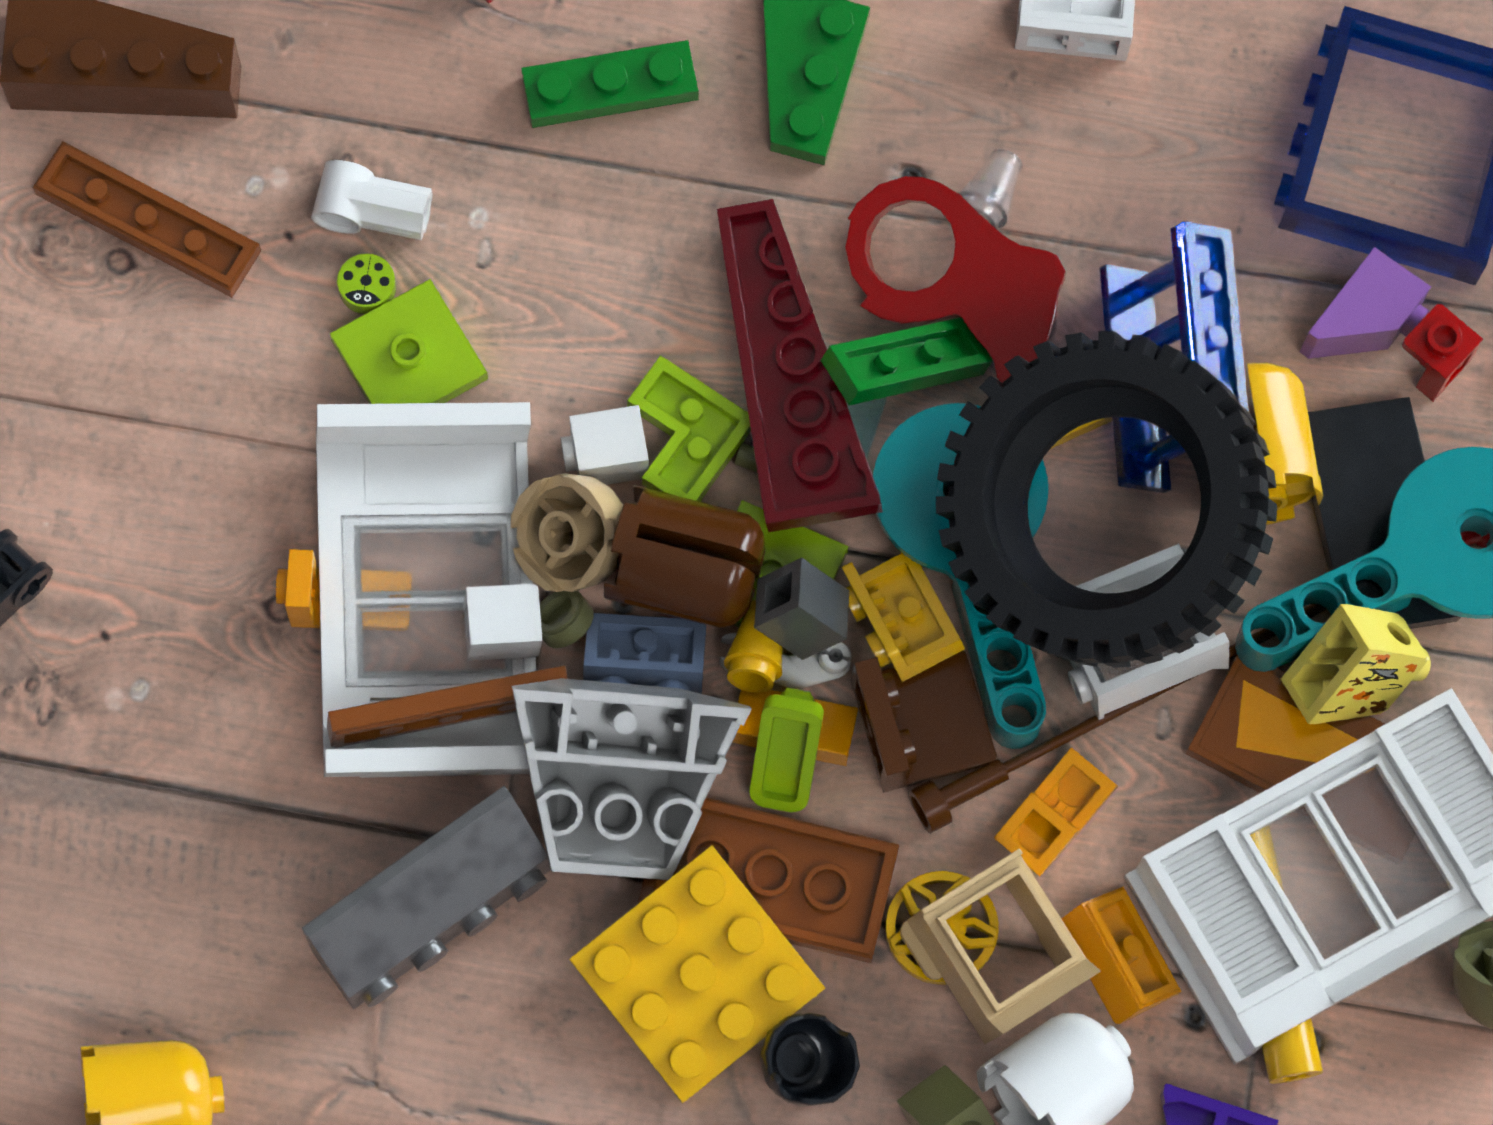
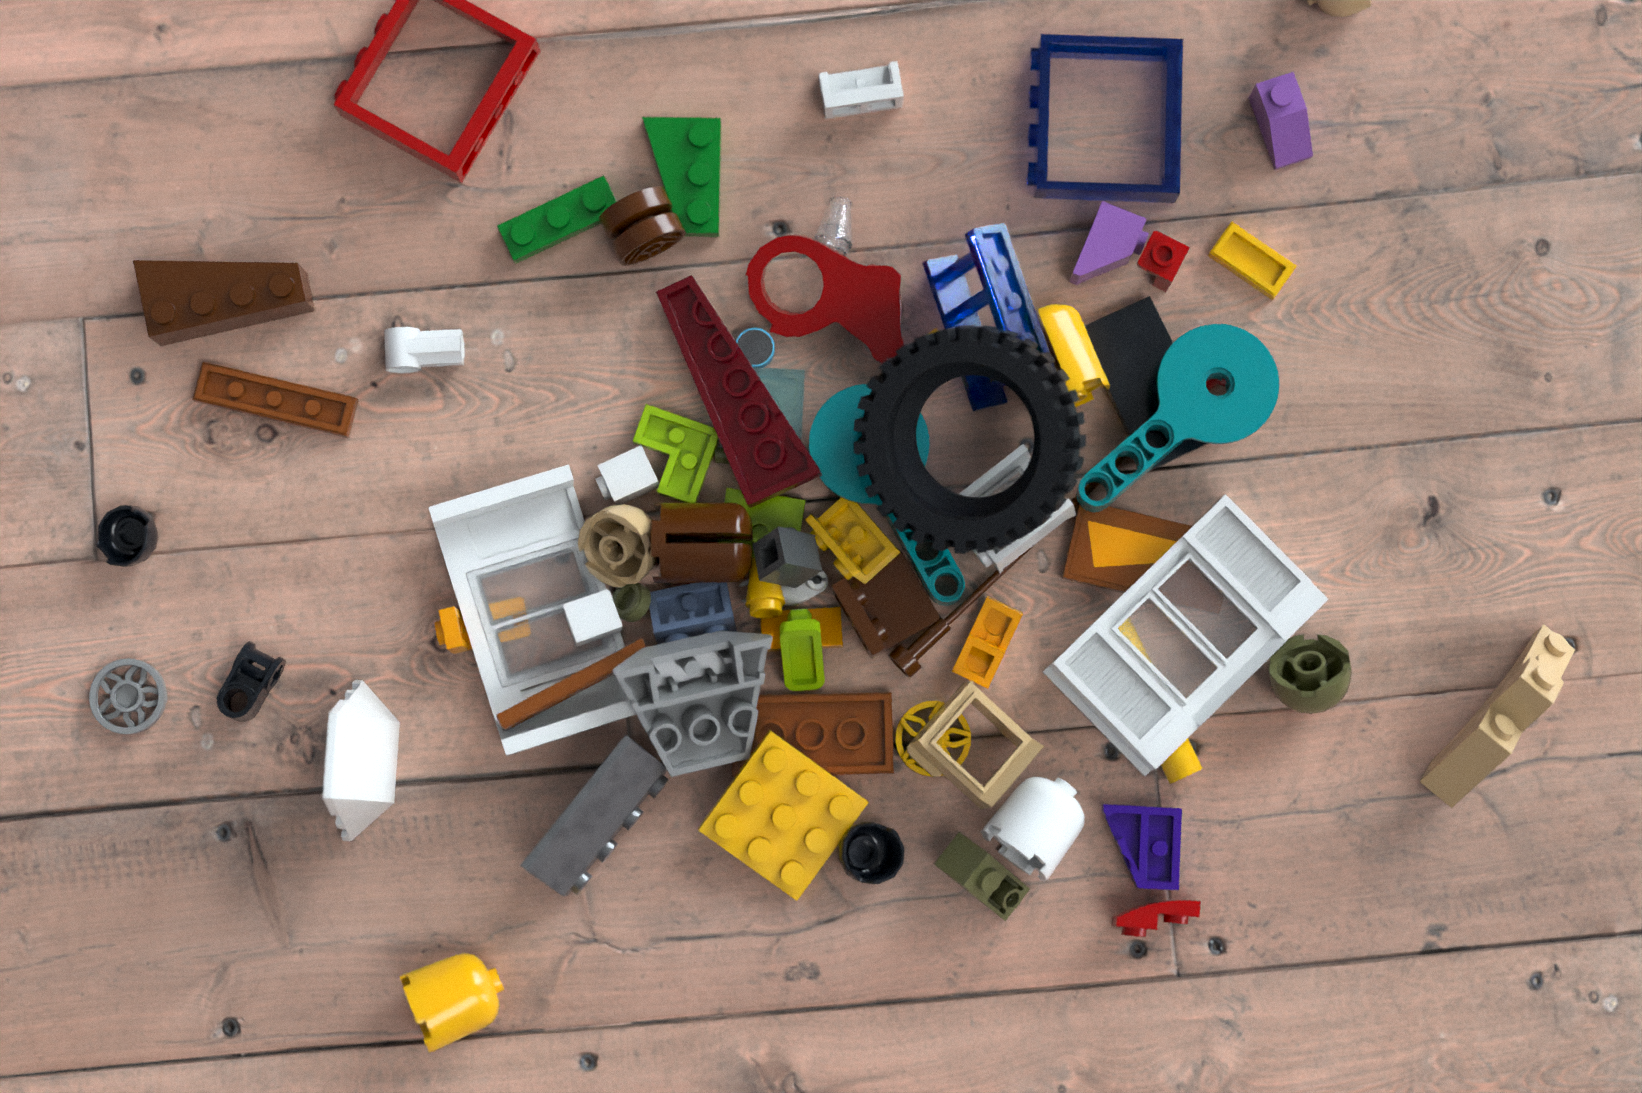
camera: 10 degrees left, 10 degrees up
(114, 734) = (360, 760): none -> white wedge
(366, 283) = (435, 405): lime tile -> none
(409, 351) = (478, 446): lime plate -> none
(722, 115) = (642, 225): none -> reddish brown wheel
(837, 319) = (757, 346): none -> tile
(905, 361) = (810, 366): green plate -> none
(1120, 946) = (1053, 725): light orange slope -> none
(1355, 665) = (1159, 495): light yellow torso -> none

